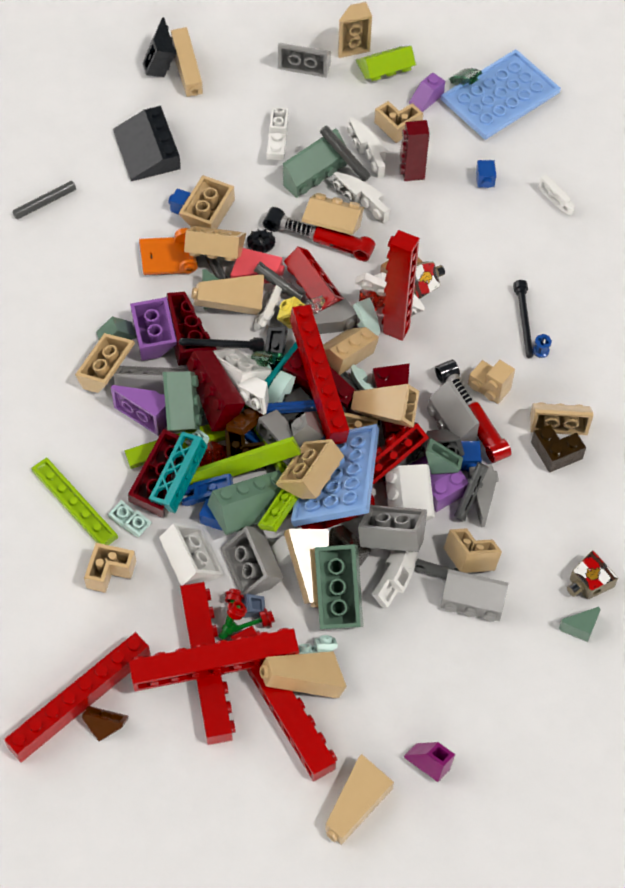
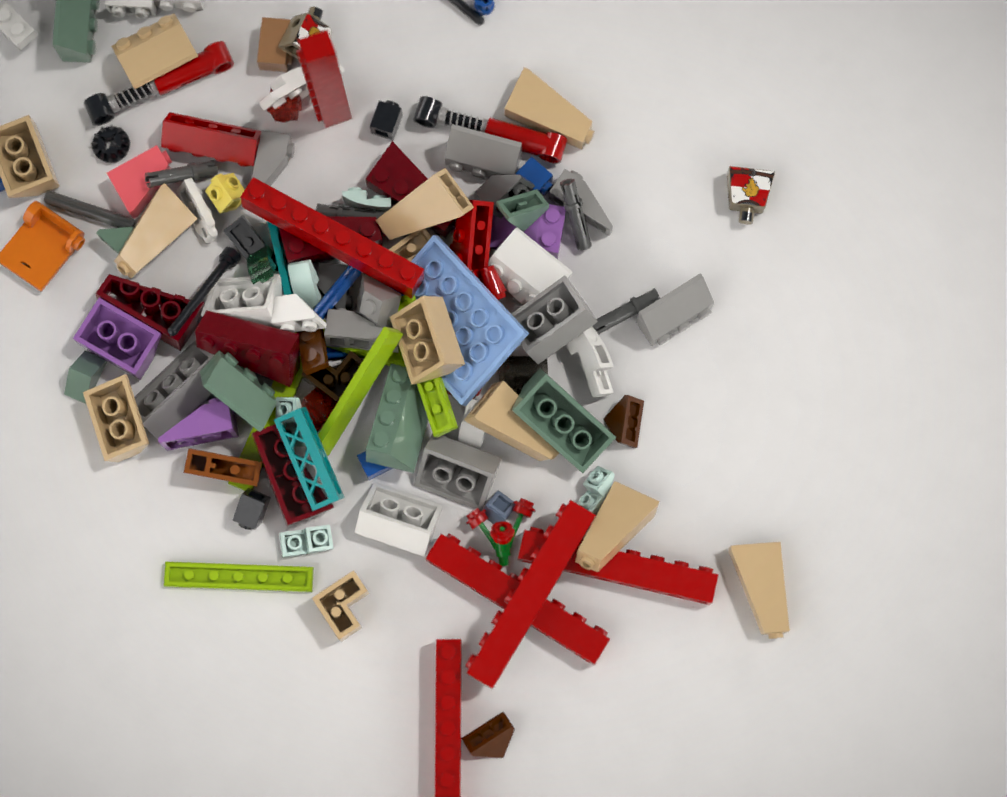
camera: 45 degrees left, 20 degrees up
(120, 472) = (251, 509): none -> black brick
(129, 435) = (222, 467): none -> dark orange slope
(204, 488) = (349, 441): blue hinge -> none
(214, 242) = (79, 194): tan slope -> none
(316, 304) = (242, 167): clear plate -> none
(350, 348) = (318, 177): tan slope -> none
(367, 315) = (303, 129): light aqua slope -> none
(379, 630) = (625, 420): none -> reddish brown slope
(381, 480) = (493, 281): none -> red cone
(419, 355) = (386, 119): none -> black brick
(431, 759) = (785, 490): magenta slope -> none
(471, 554) = (634, 275): tan brick -> none
(492, 380) = (477, 83): tan brick -> none
(514, 425) = (547, 111): none -> tan slope
(555, 451) = (603, 99): dark brown brick -> none
(563, 418) = (575, 59): tan slope -> none
(581, 624) = (785, 243): sand green slope -> none

